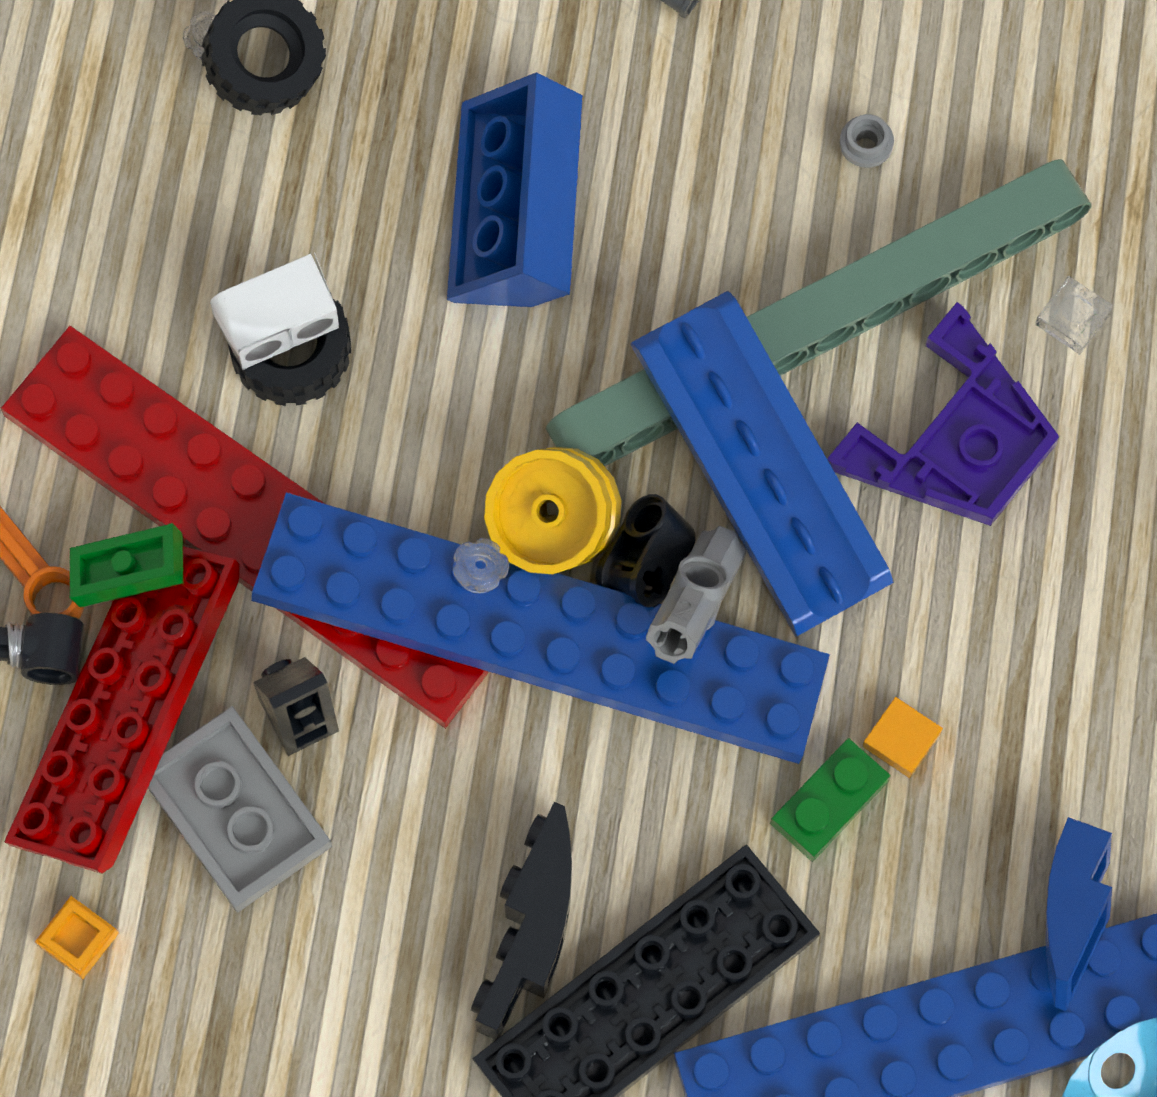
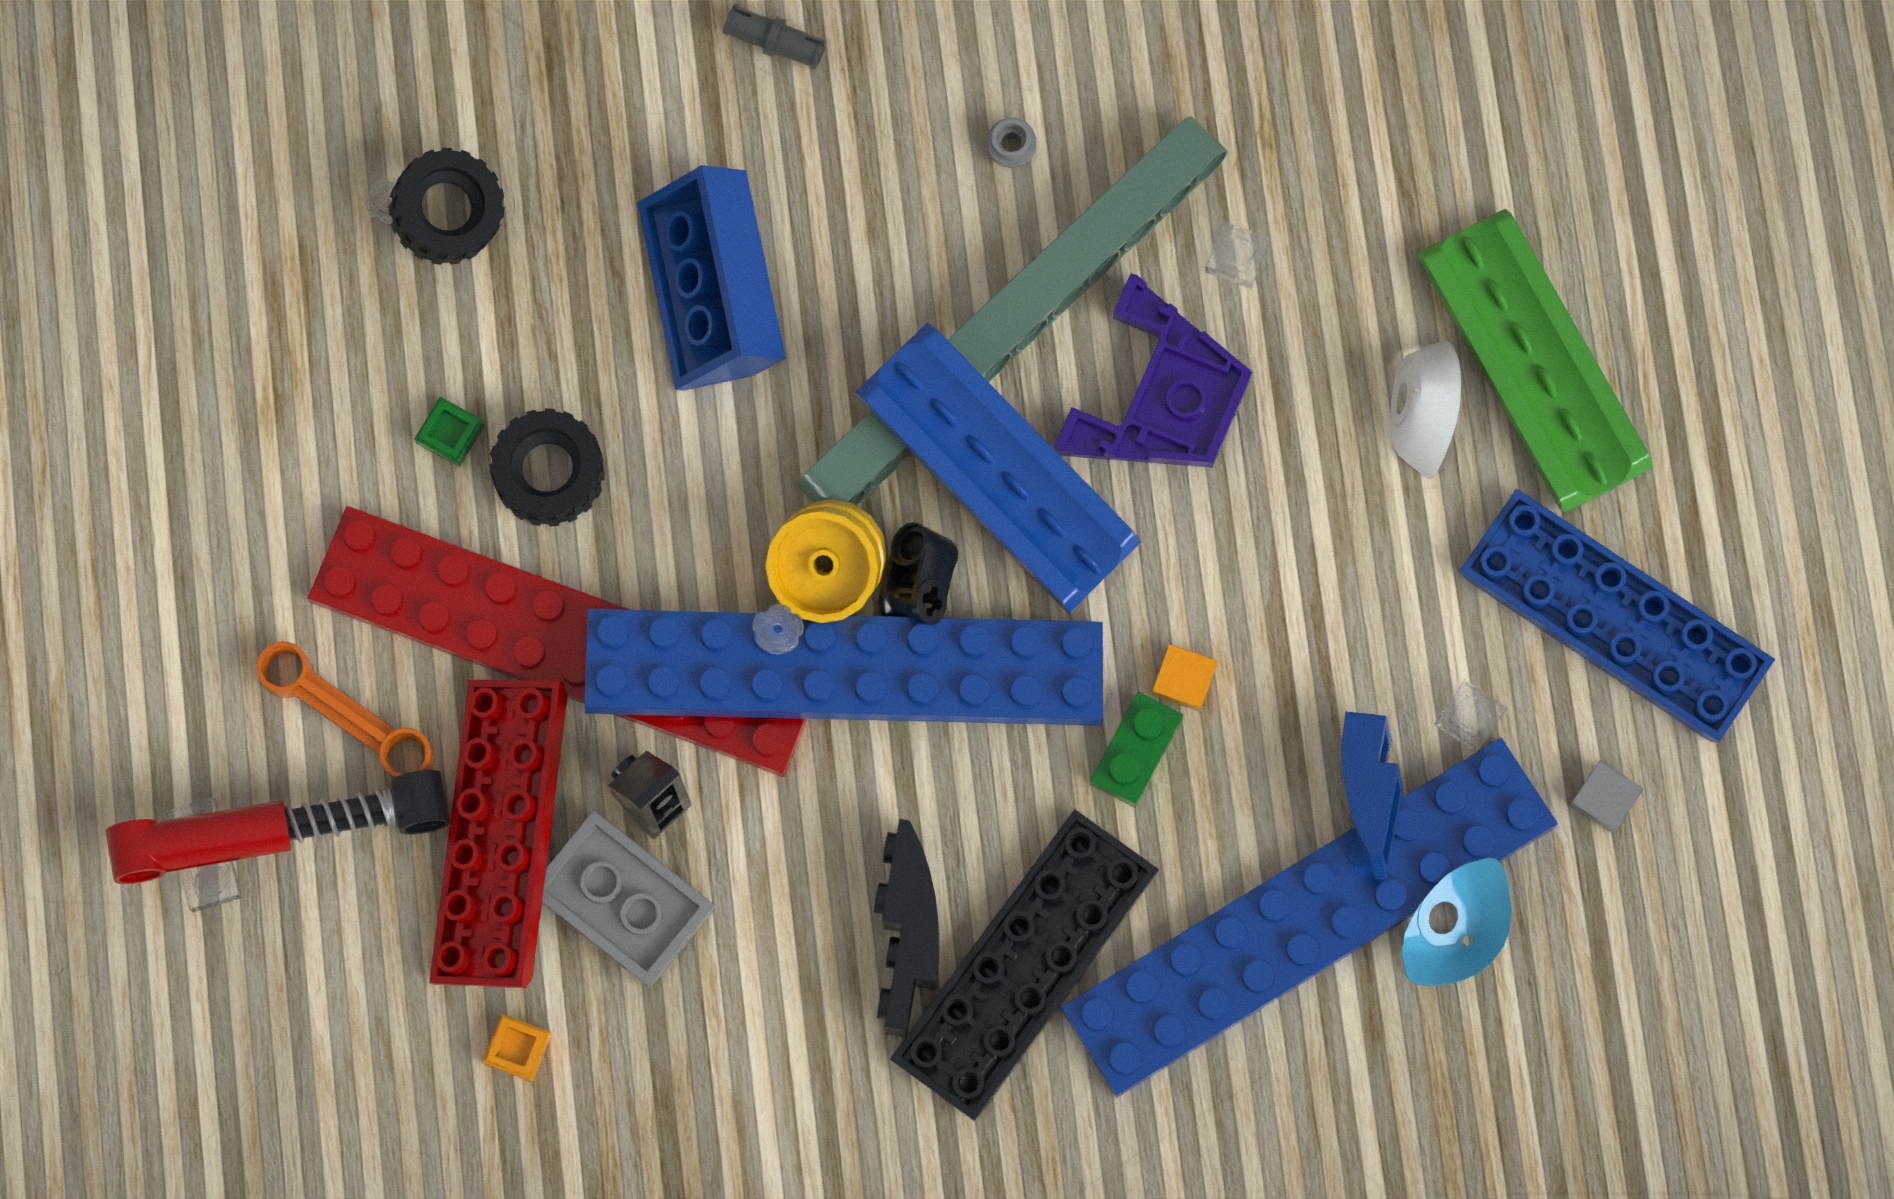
camera: 10 degrees left, 5 degrees up
(126, 565) = (465, 711): green plate -> none
(198, 279) = (449, 431): none -> green tile
(275, 311) = (531, 448): white piece -> none
(696, 594) = (973, 603): light grey piece -> none

